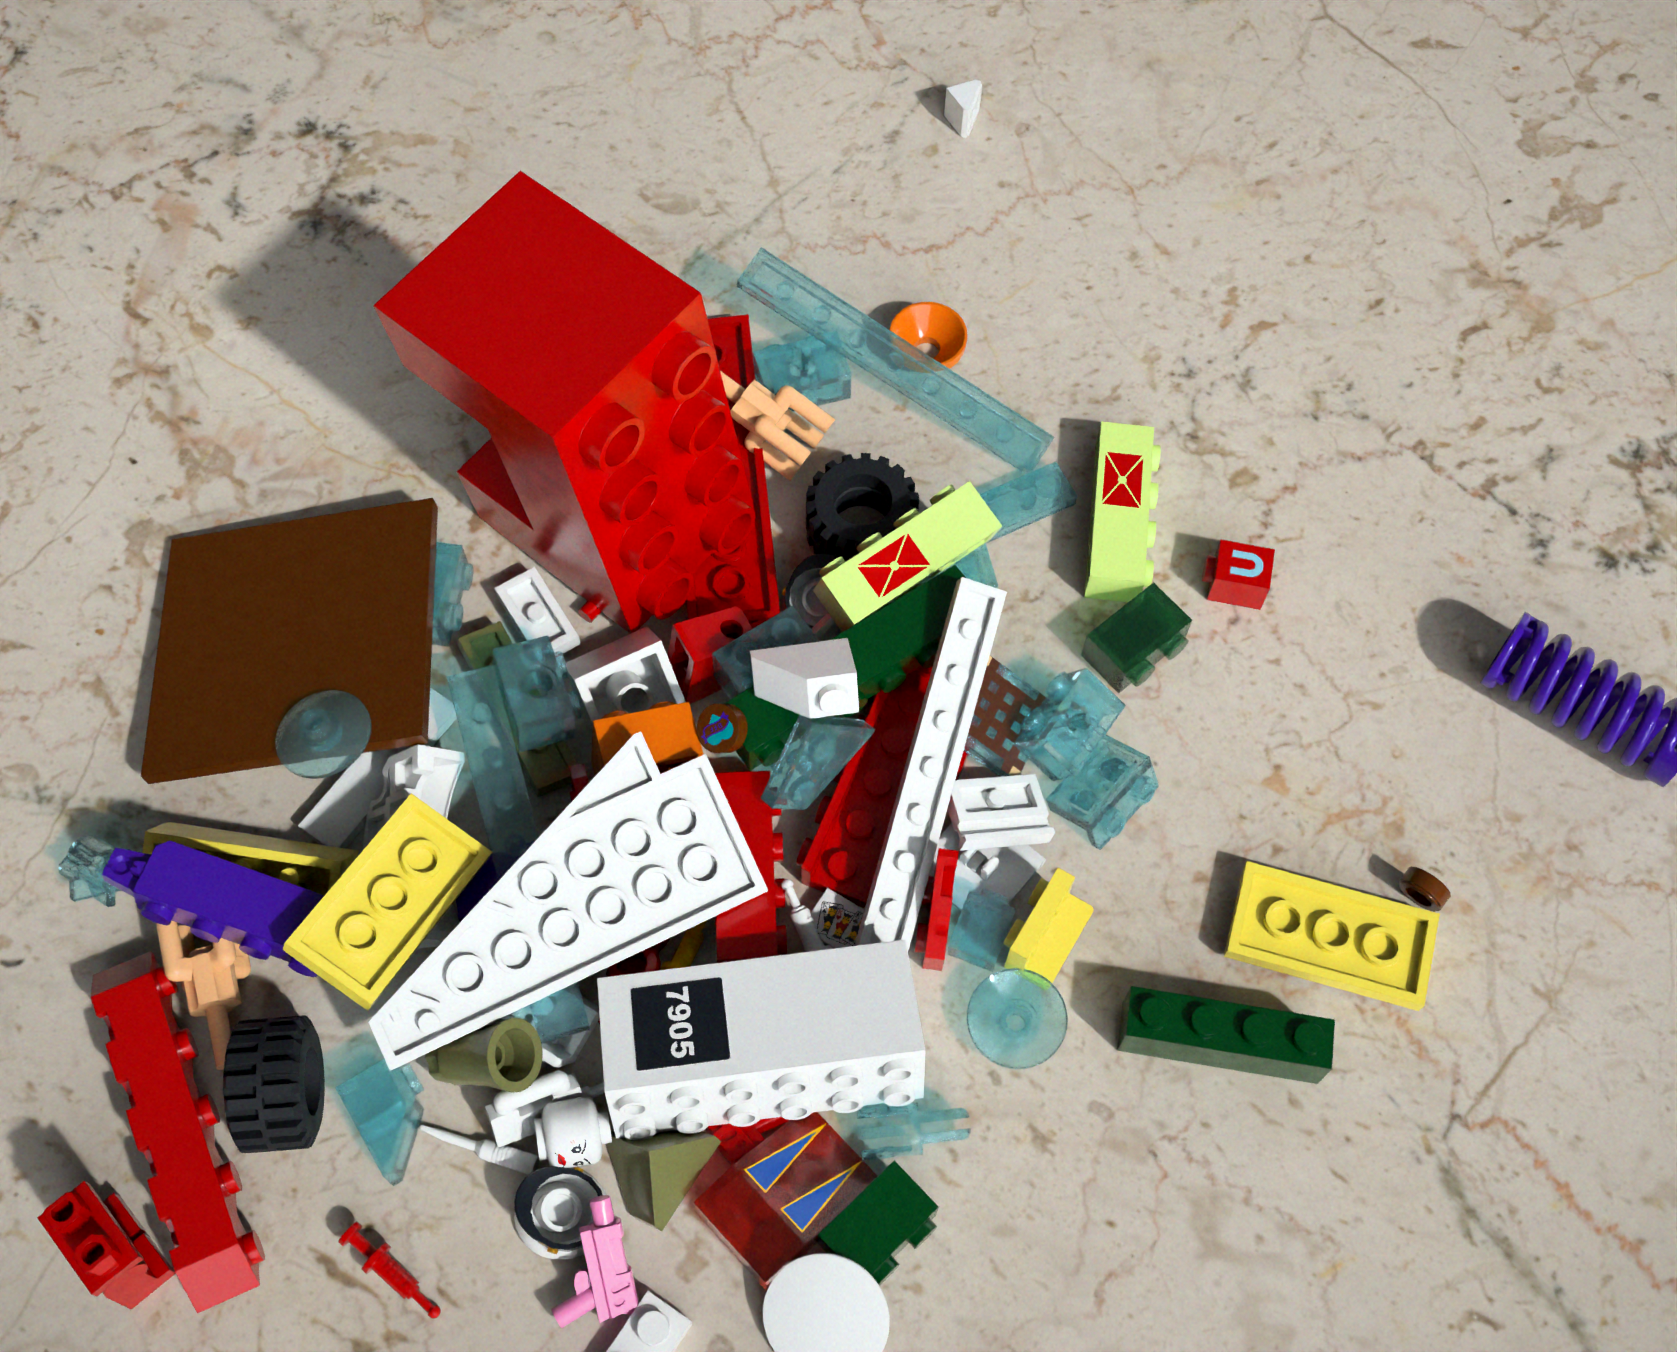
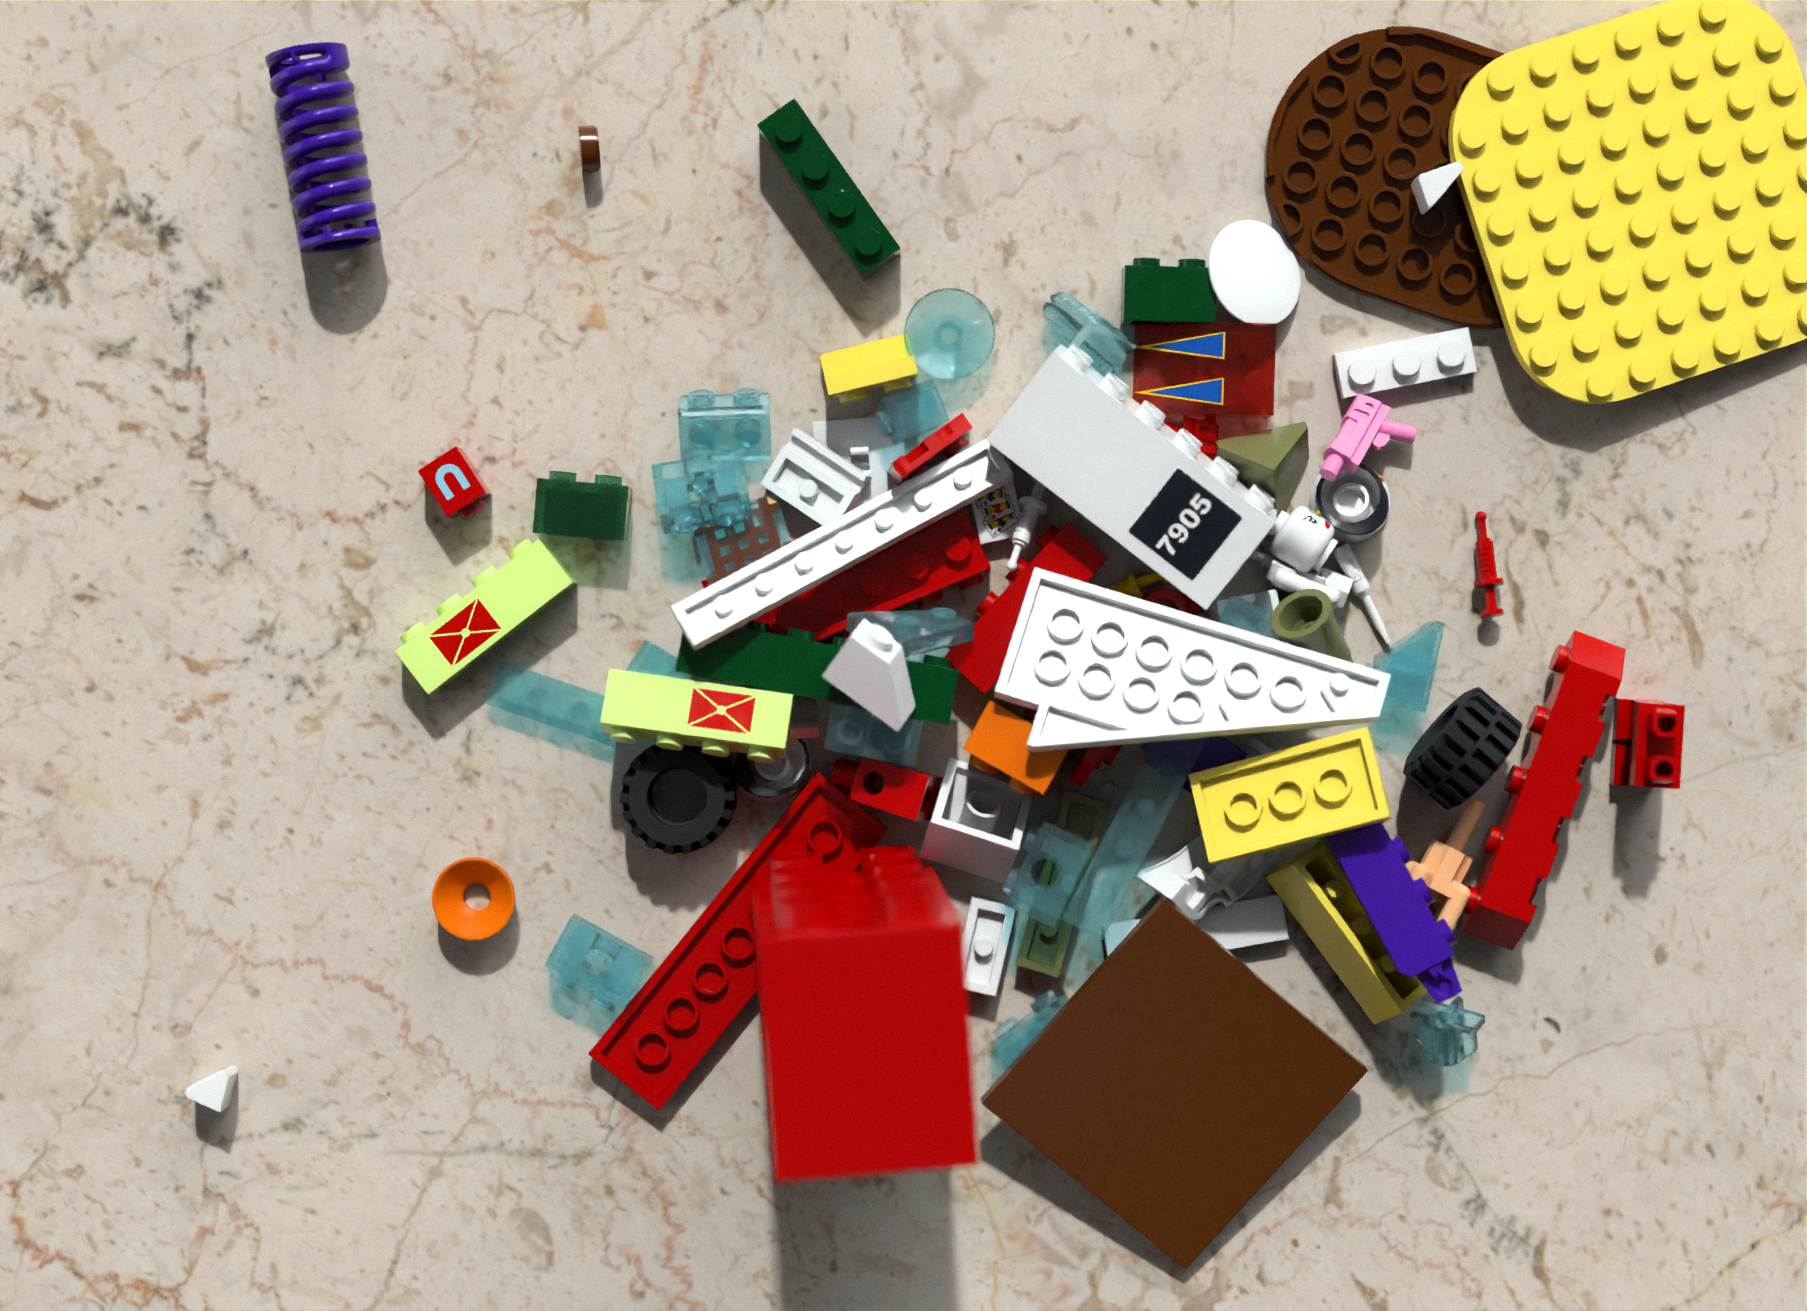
camera: 135 degrees left, 25 degrees up
(332, 745) = (1219, 952): clear light blue dish -> none
(722, 728) = (961, 703): reddish brown tile -> none
(769, 415) = (670, 941): light nougat plant -> none
(894, 361) = (529, 897): clear light blue tile -> none
(1332, 935) = (684, 182): light yellow plate -> none

